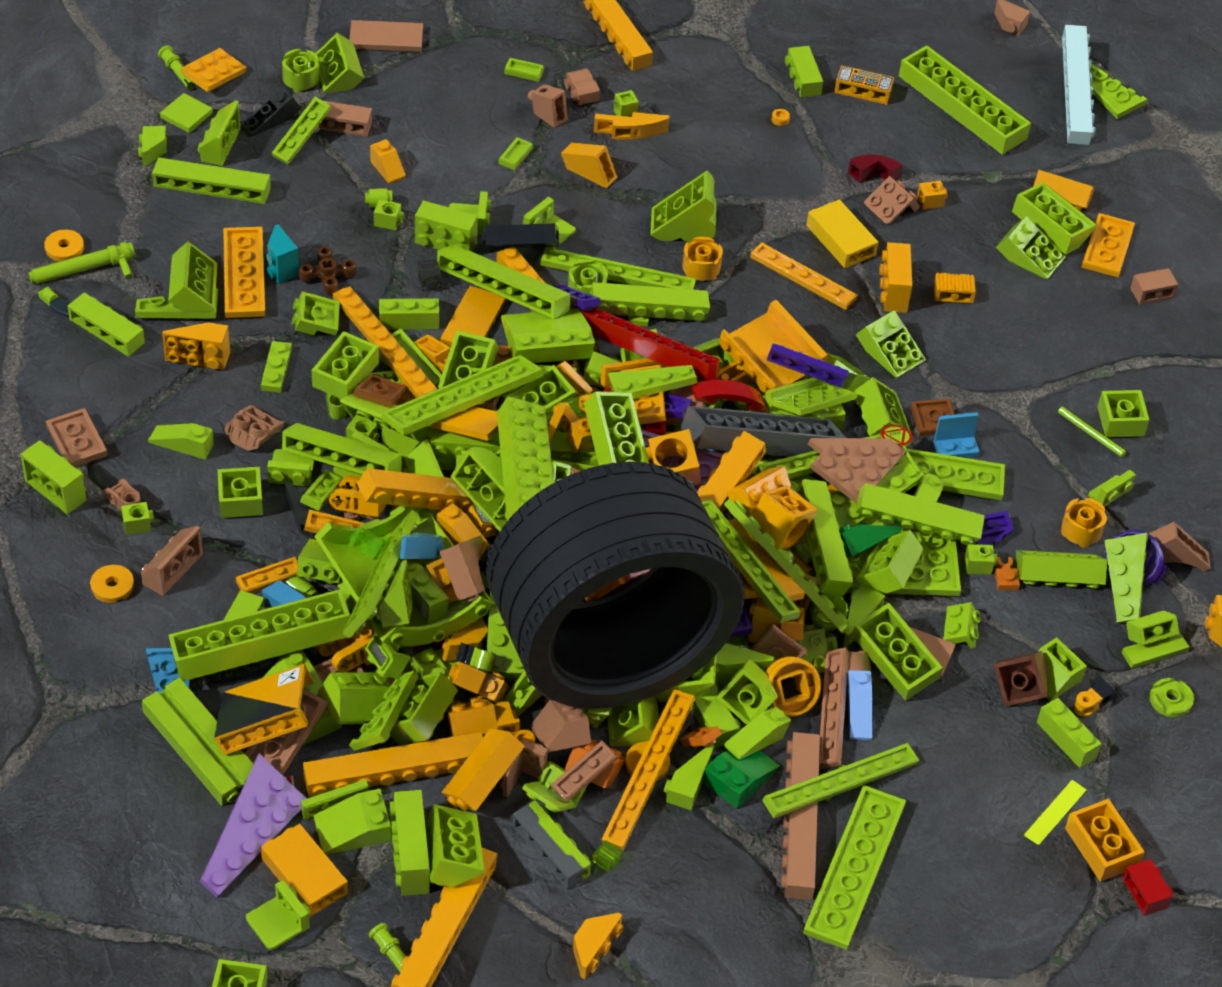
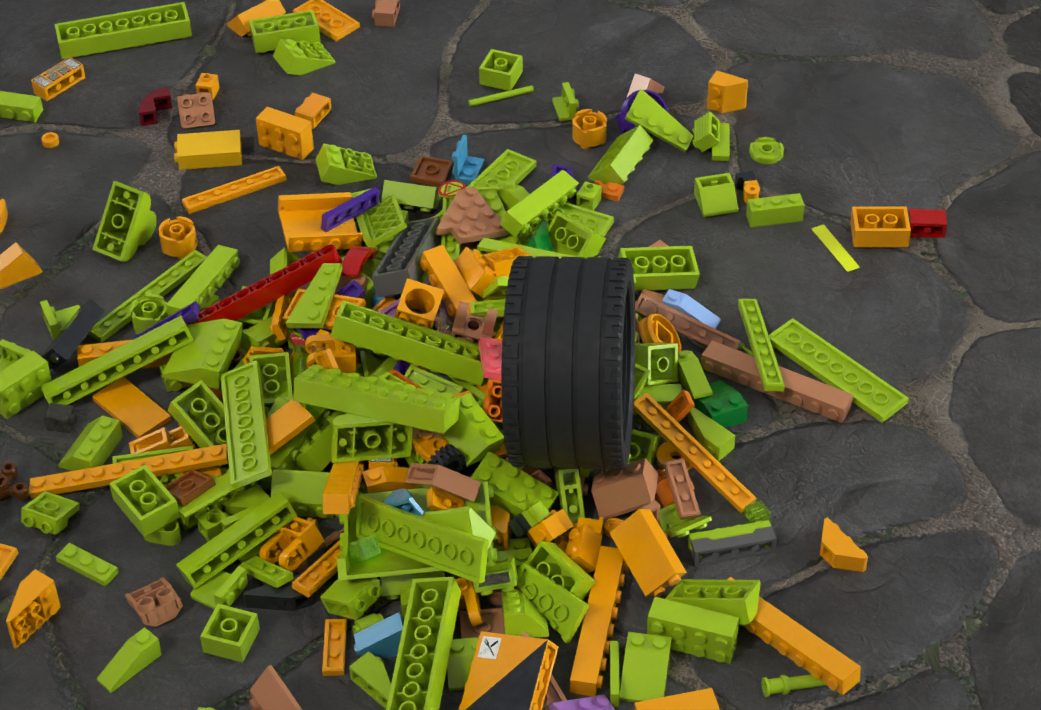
camera: 60 degrees left, 5 degrees down
(962, 624) = (643, 230): lime bracket -> none
(1022, 678) = (717, 212): copper slope -> none

